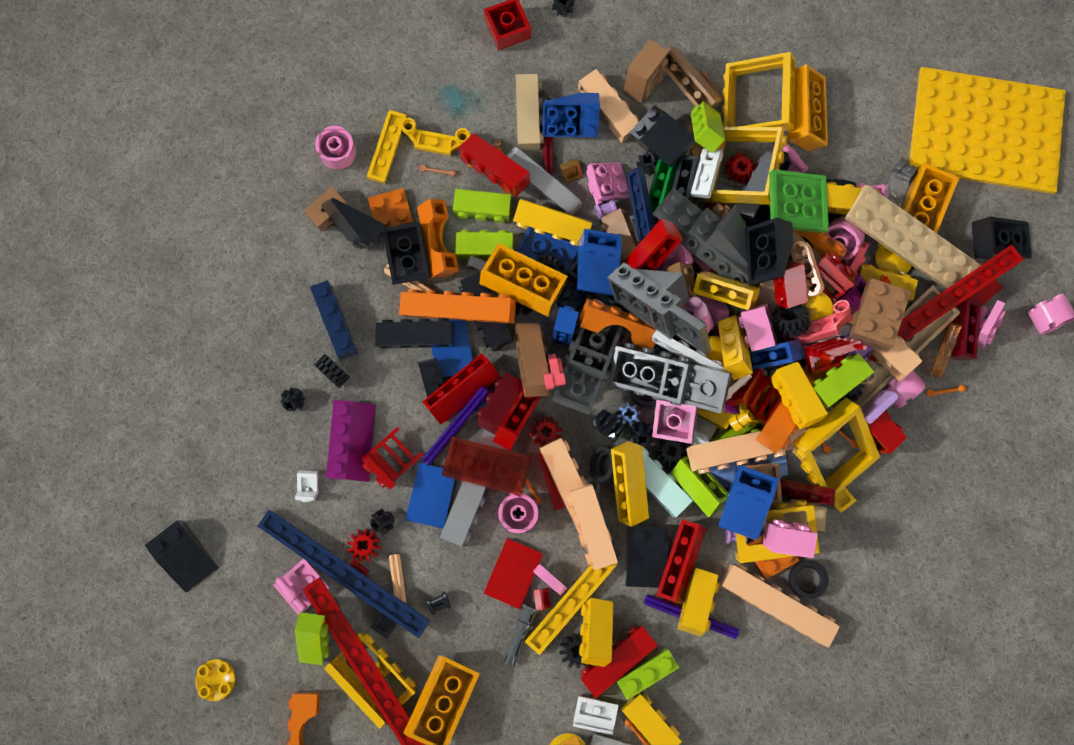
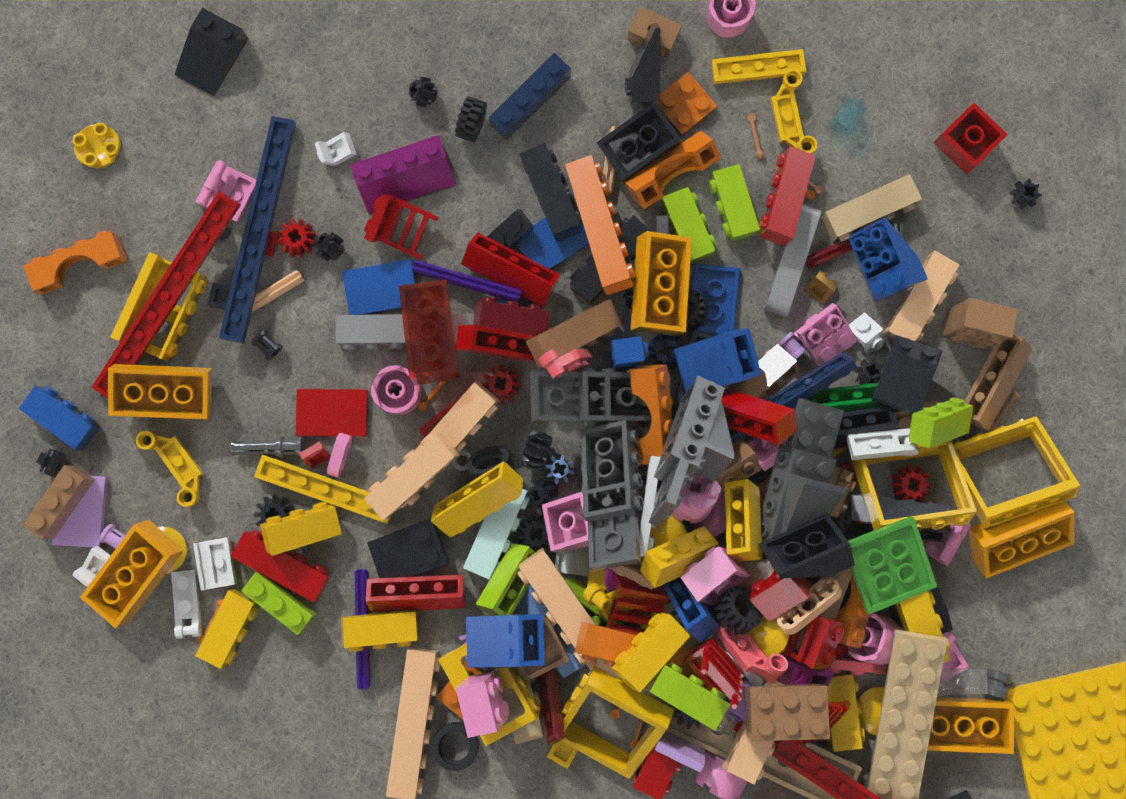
camera: 75 degrees right, 5 degrees up
(312, 639) = (172, 224): lime brick -> none
(501, 713) = (178, 462): none -> yellow plate
(551, 221) = (747, 288): yellow brick -> none
(618, 152) = (868, 333): none -> white bracket

